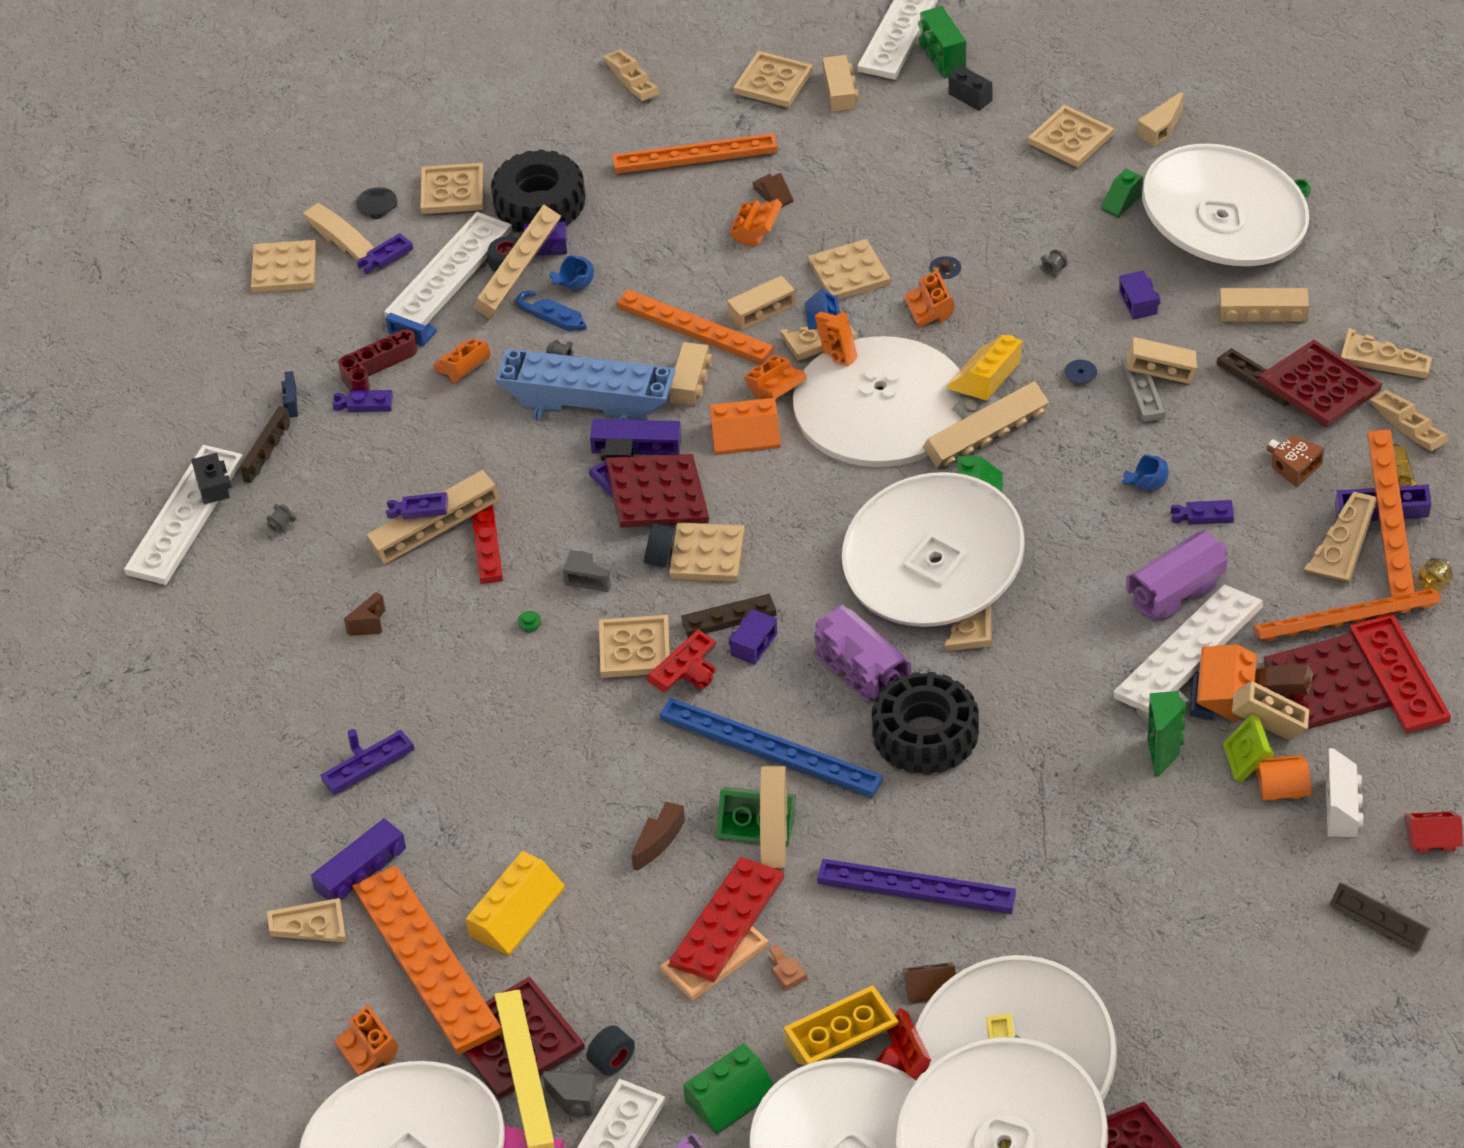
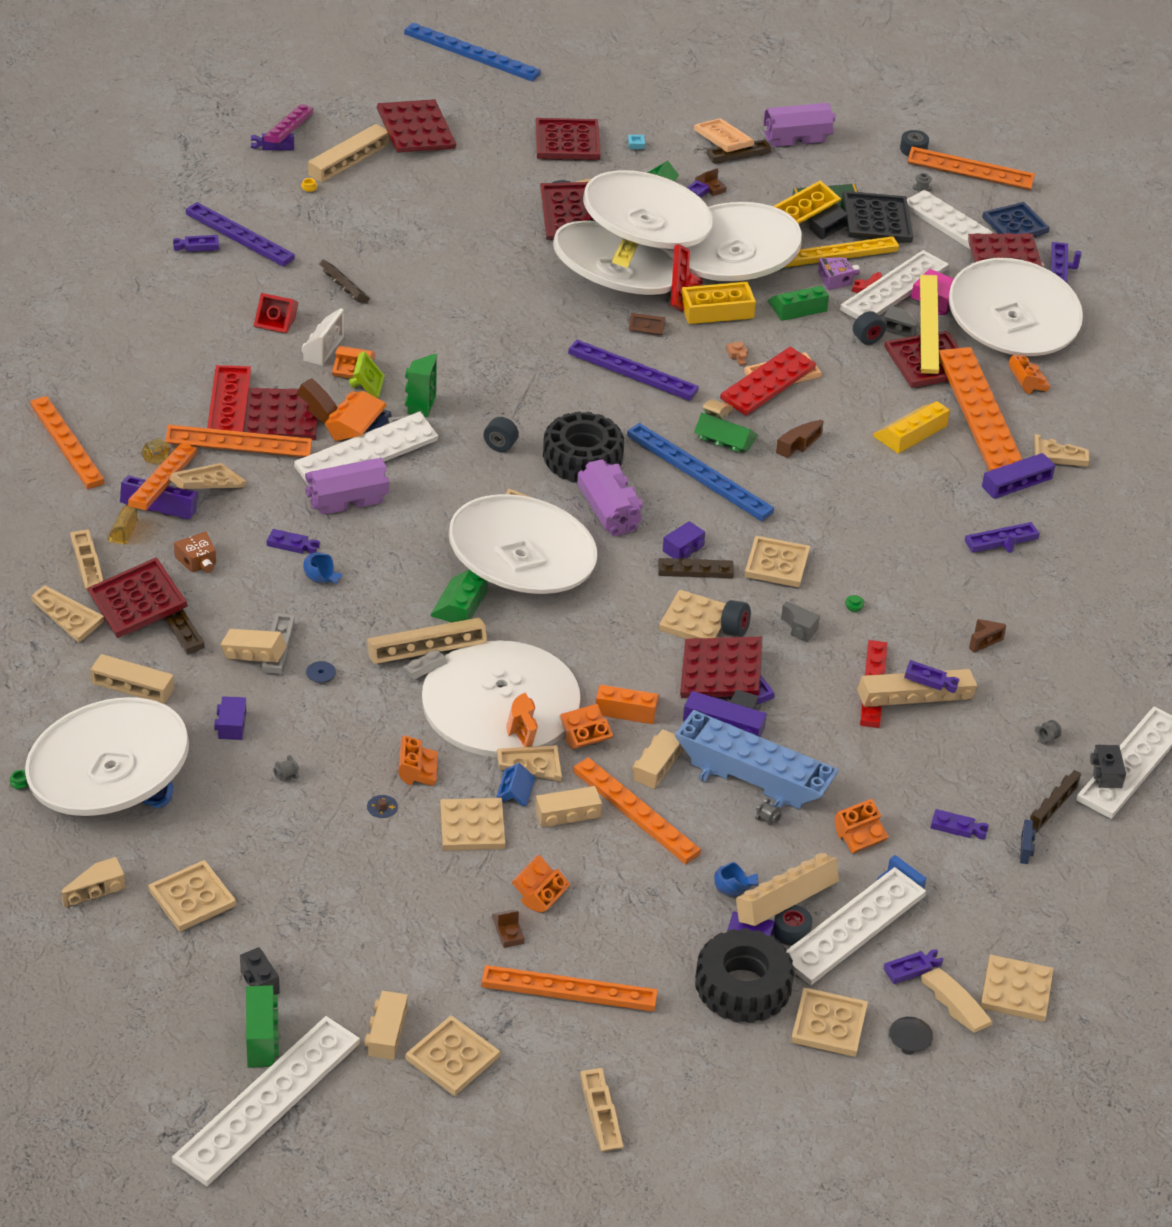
camera: 170 degrees left, 5 degrees down
(375, 357) = (947, 854): dark red beam -> none
(552, 312) = (759, 857): blue plate -> none
(686, 663) = (742, 529): red plate -> none
(988, 368) = (403, 678): yellow slope -> none
(1035, 710) = (501, 434): none -> black wheel
(1123, 193) = (181, 818): green slope -> none
(1274, 710) = (344, 380): tan brick -> none

